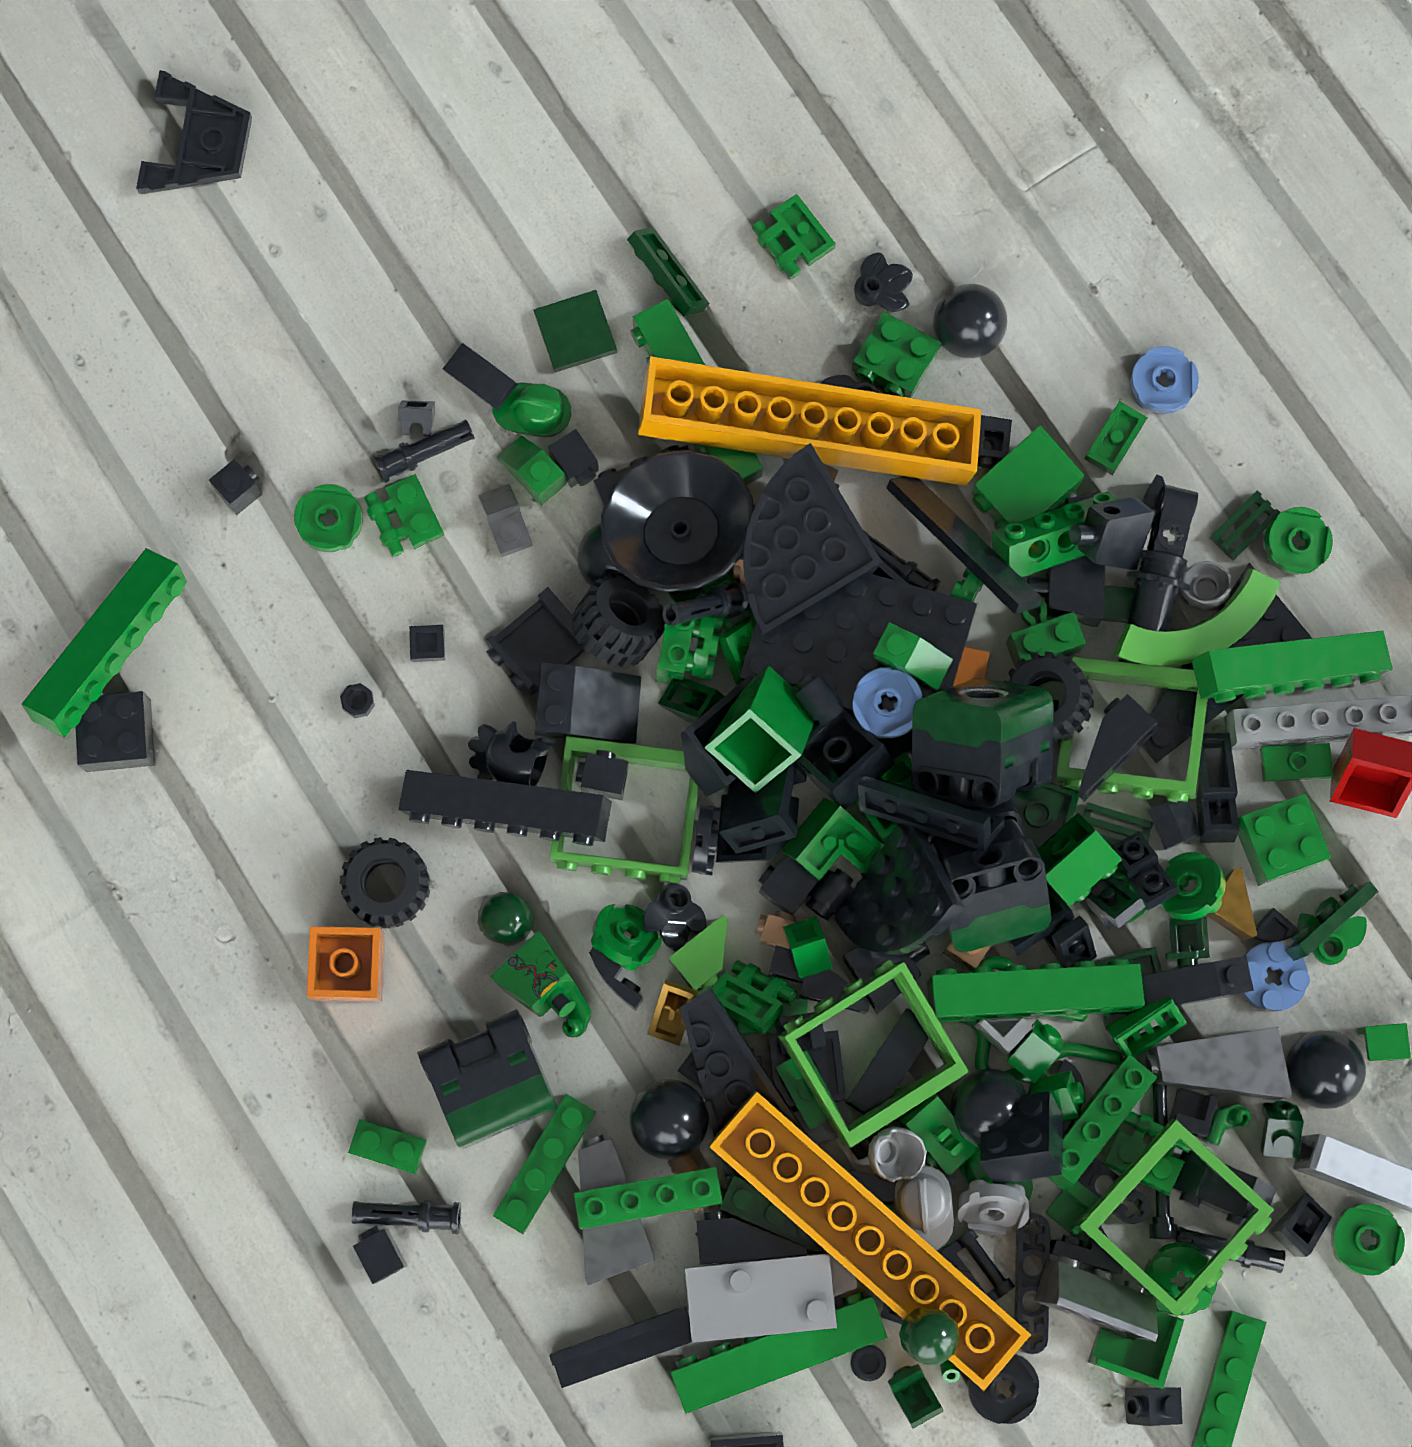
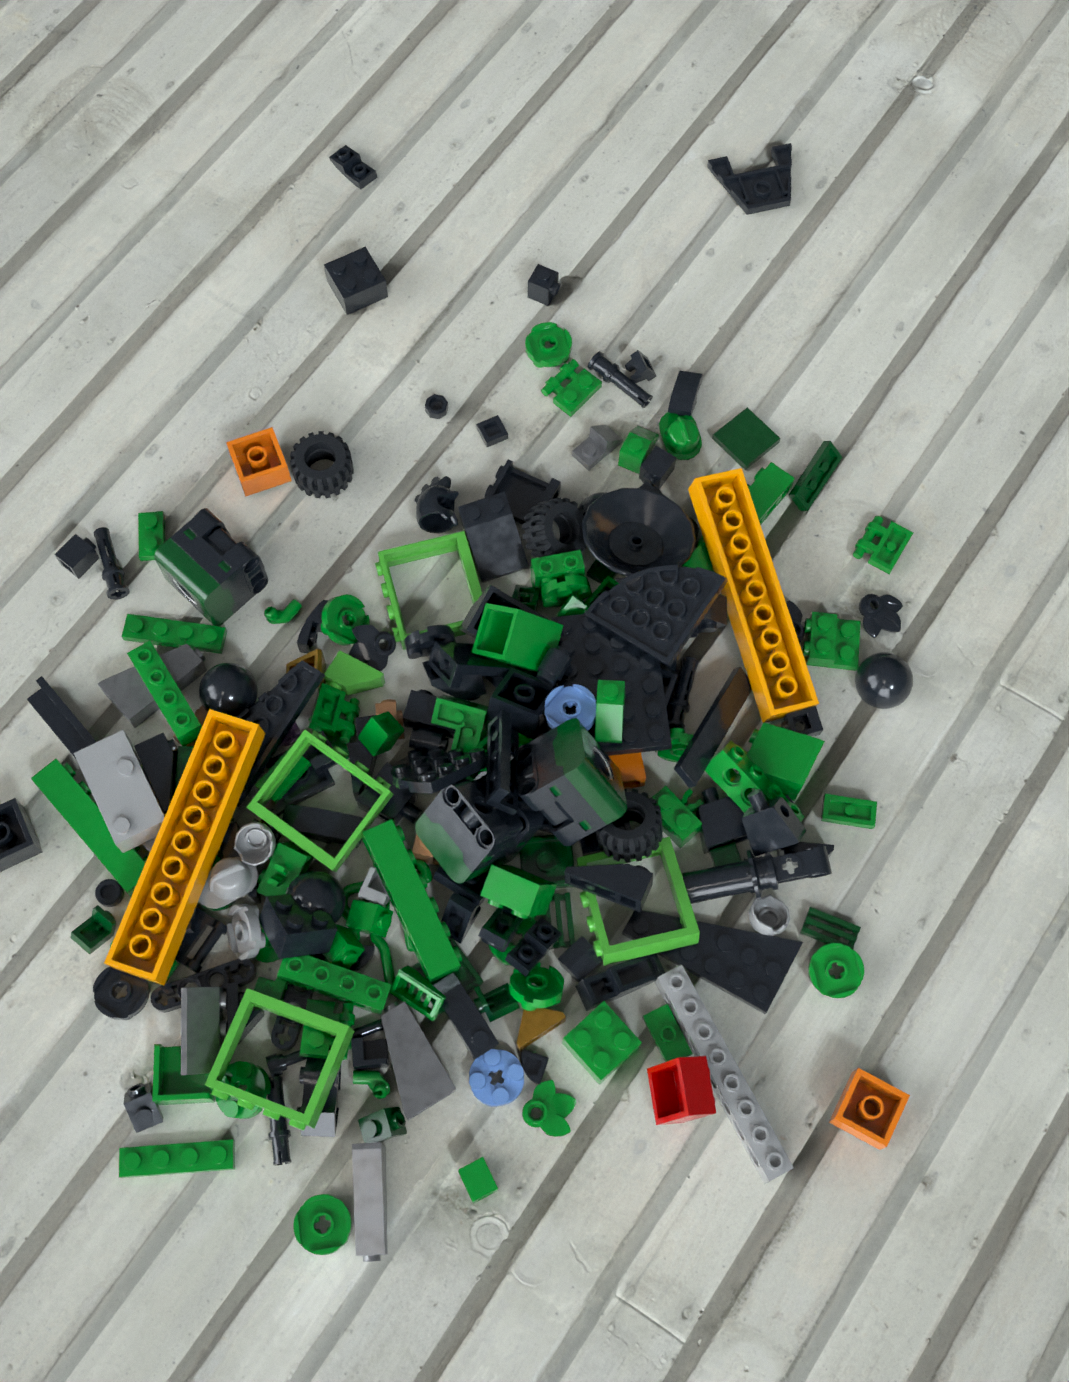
camera: 70 degrees right, 10 degrees down
(104, 643) = (407, 248): green brick -> none
(505, 806) = (400, 511): black brick -> none
(505, 918) = (329, 547): dark green hair -> none
(537, 978) = (295, 577): green torso -> none
(603, 774) = (445, 559): black brick -> none
(715, 603) = (593, 579): black pin -> none
(929, 1336) = (128, 907): dark green hair -> none
(1177, 367) = (903, 842): medium blue plate -> none
(1213, 633) = (726, 924): bright green tile -> none
(1292, 665) = (735, 995): green brick -> none
(1301, 1226) = (315, 1168): black slope -> none
(1325, 1069) = (441, 1143): black piece -> none
(1330, 919) = (555, 1100): dark green plate -> none

